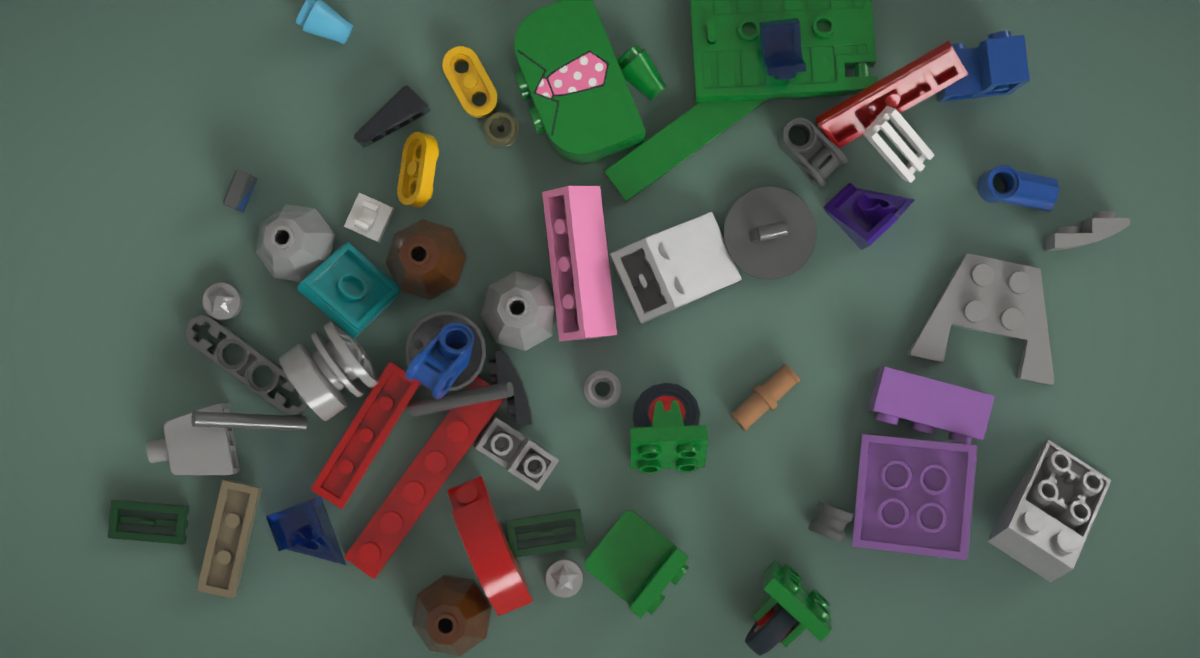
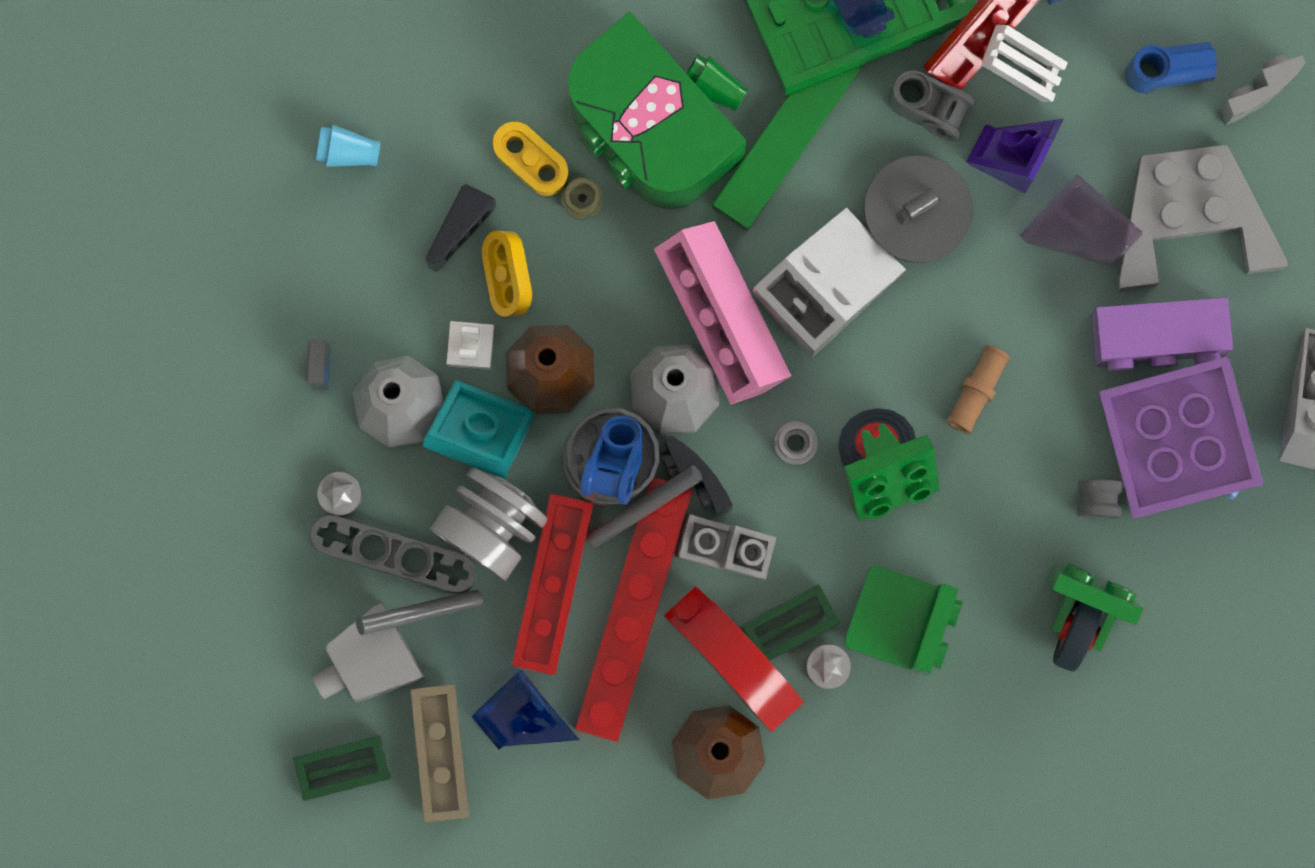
camera: 20 degrees left, 5 degrees down
(898, 294) = (1083, 225): none -> clear purple wing

